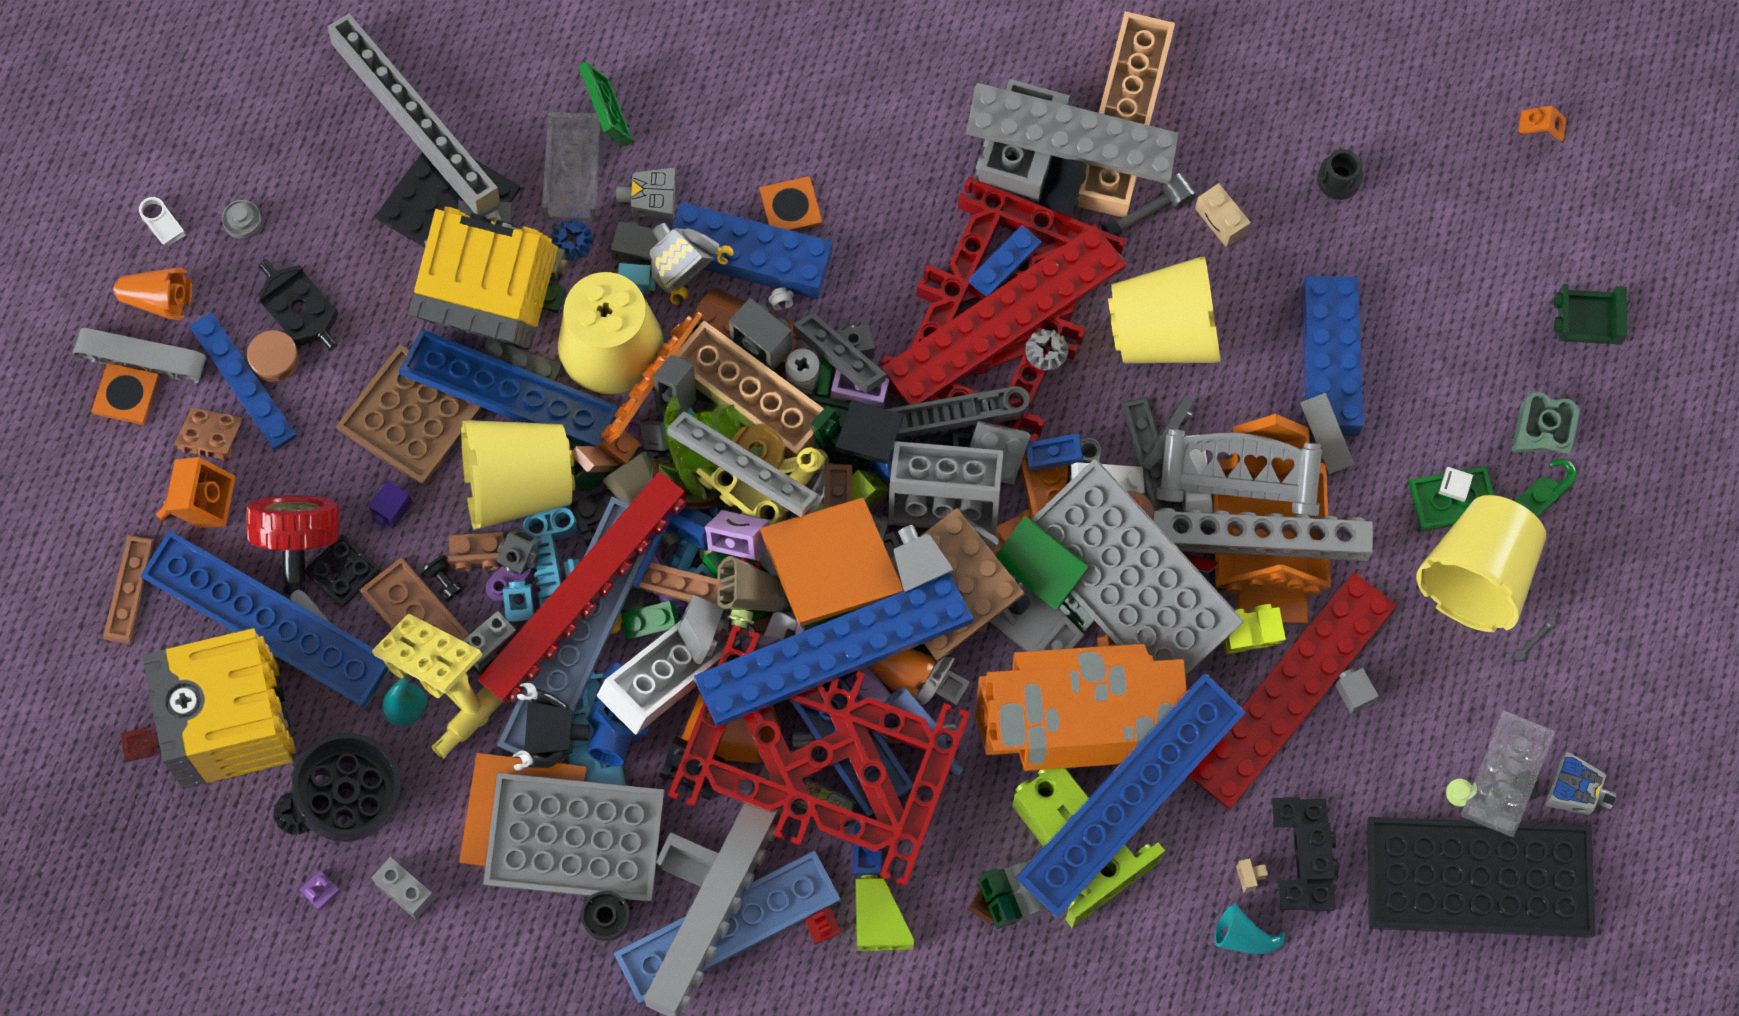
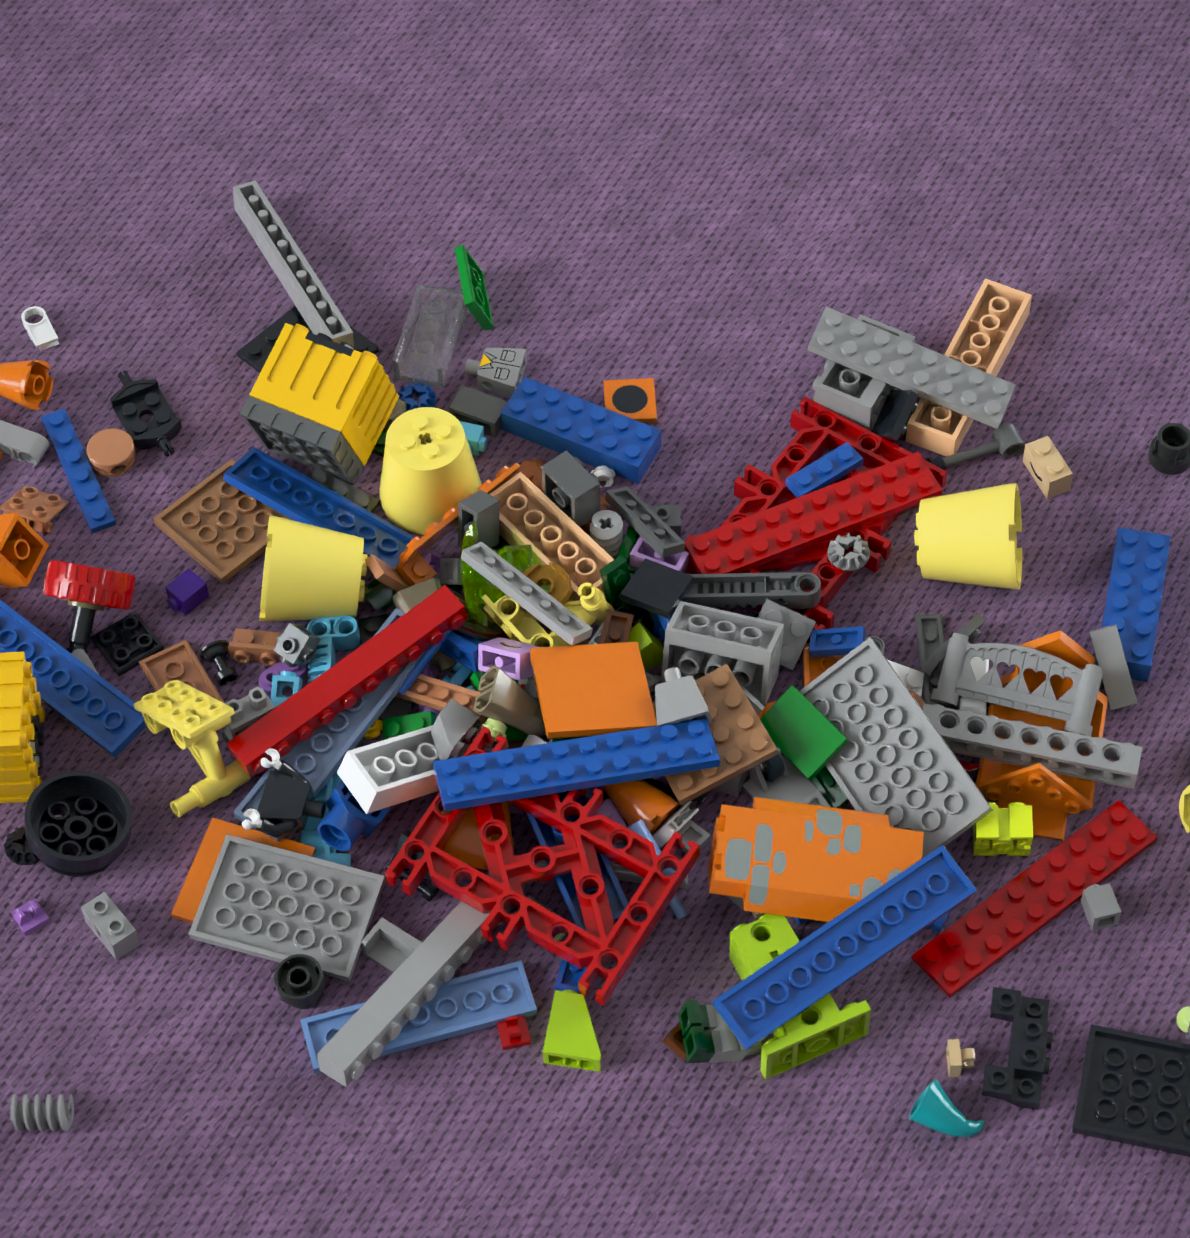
camera: 15 degrees right, 15 degrees down
(241, 219) = (113, 336): light grey plate -> none
(404, 703) = (151, 764): teal hat -> none
(680, 257) = (512, 418): light grey torso -> none

